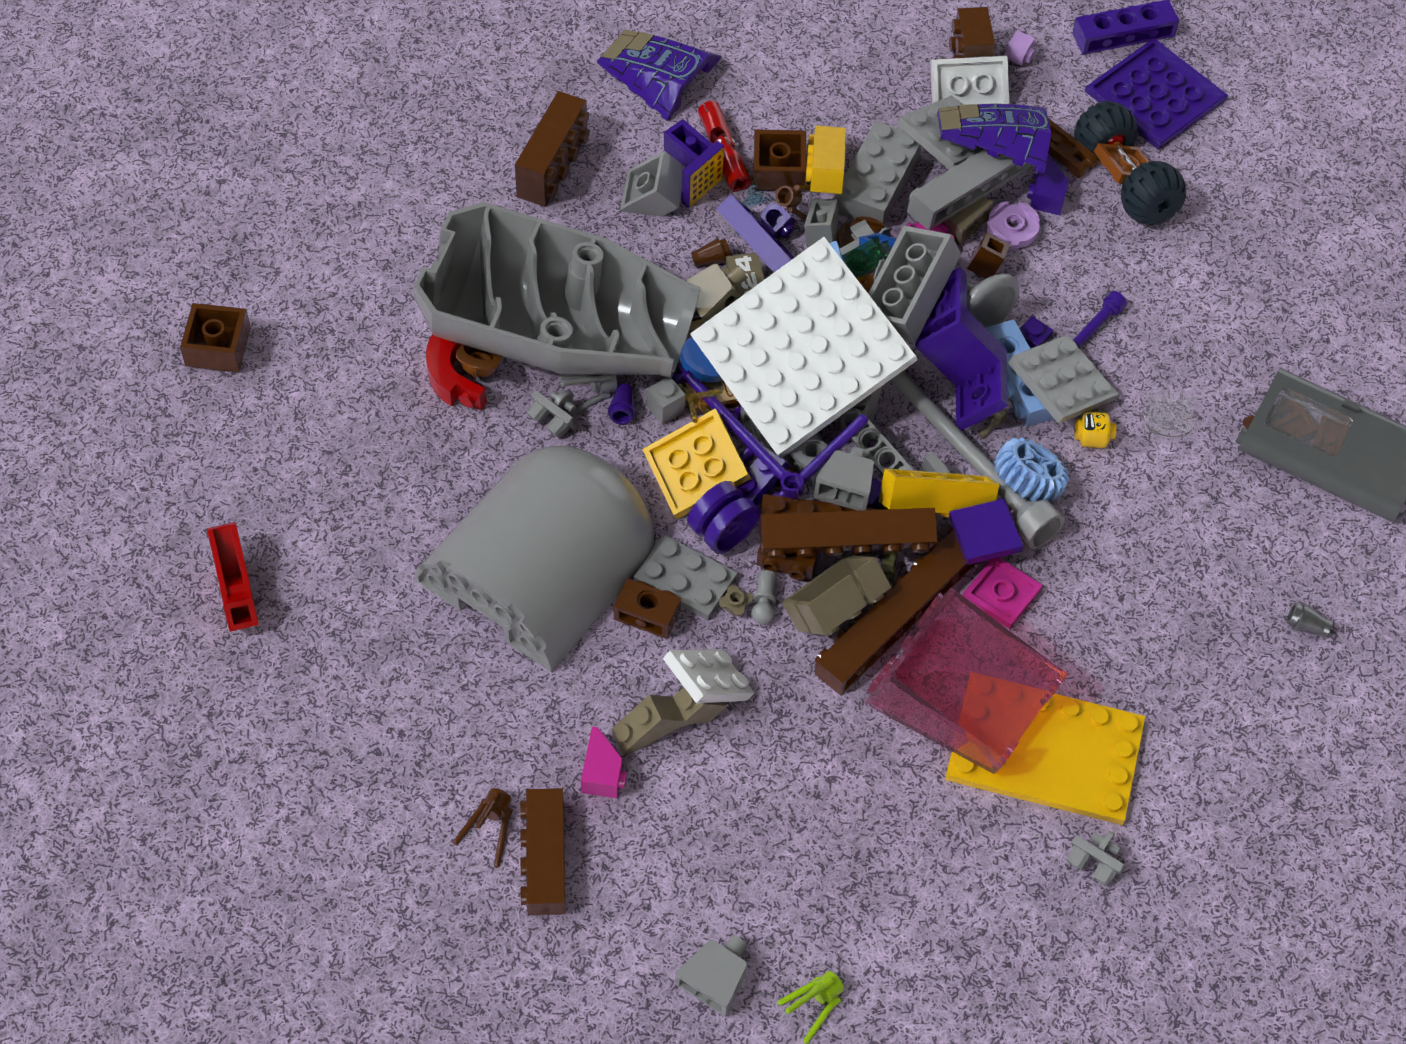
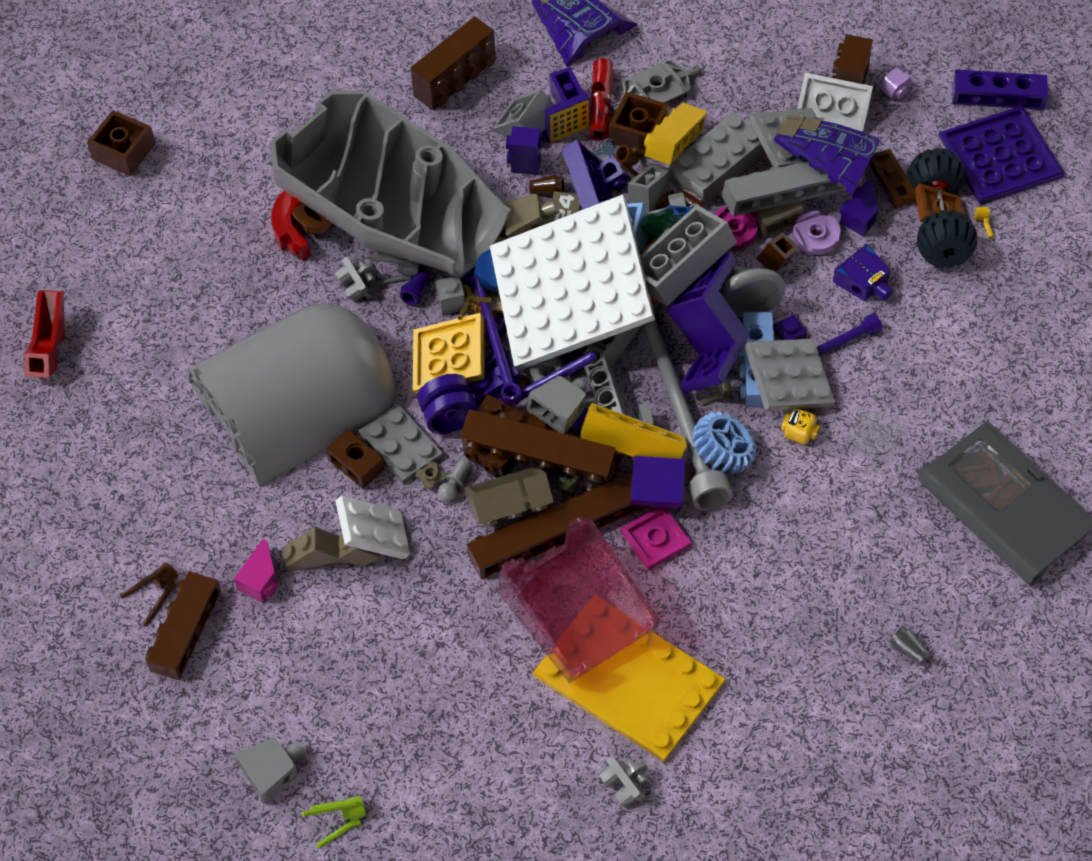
camera: 25 degrees right, 0 degrees up
(674, 221) = (524, 150): none -> dark purple brick
(790, 103) = (672, 77): none -> light grey plate
(1084, 254) = (864, 275): none -> dark purple torso
(1171, 158) = (983, 214): none -> yellow hand

